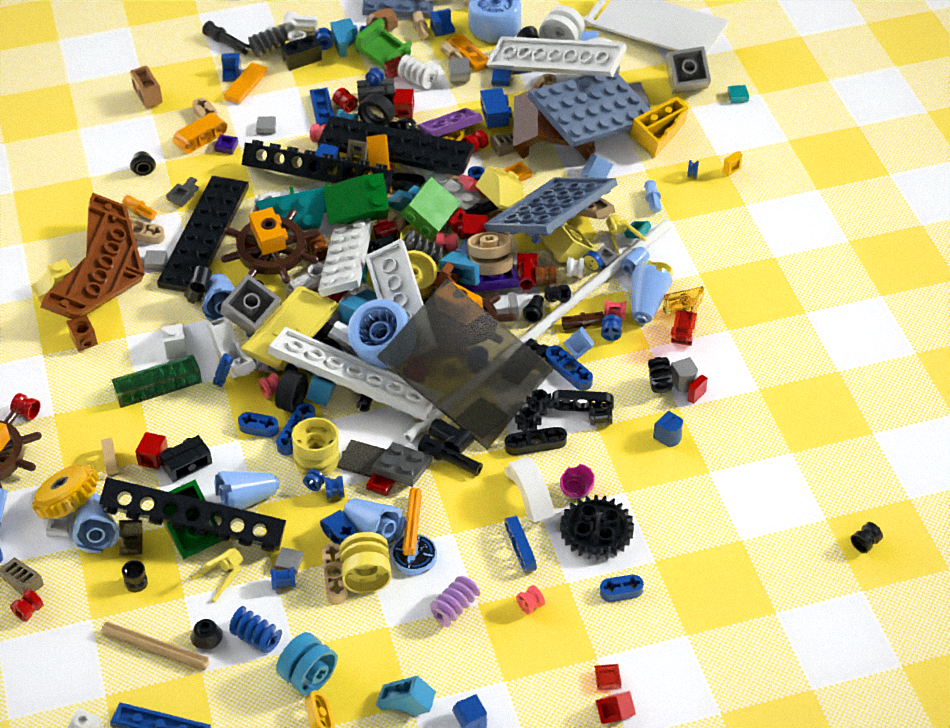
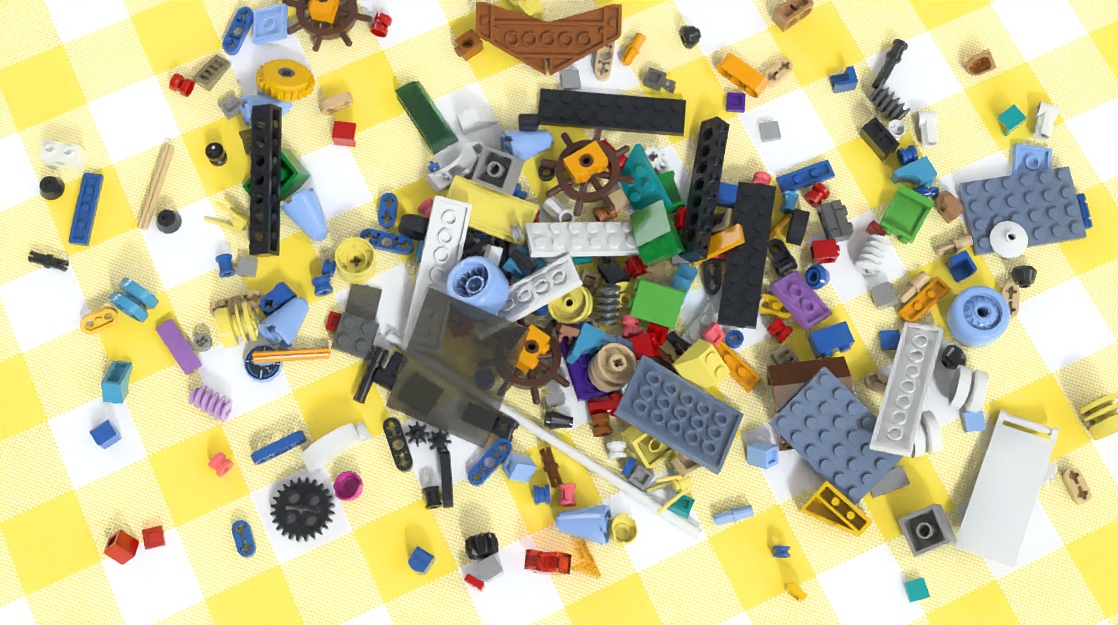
camera: 80 degrees right, 25 degrees up
(74, 562) = (230, 107): none -> light grey tile
(185, 458) = (340, 162): black brick -> none
(245, 83) = (827, 98): light orange tile -> none
(254, 631) = (169, 254): blue piece -> none
(326, 298) = (517, 232): none -> light grey bush
(362, 295) = (524, 262): none -> black cone
(370, 605) = (206, 346): none -> light grey bush
(373, 636) = (179, 347): none -> medium lavender tile
(374, 76) = (840, 214): blue bush -> none
(423, 112) = (817, 276): none -> blue cone
(557, 293) = (575, 440): black bush -> none
(634, 259) = (635, 507): light blue brick -> none

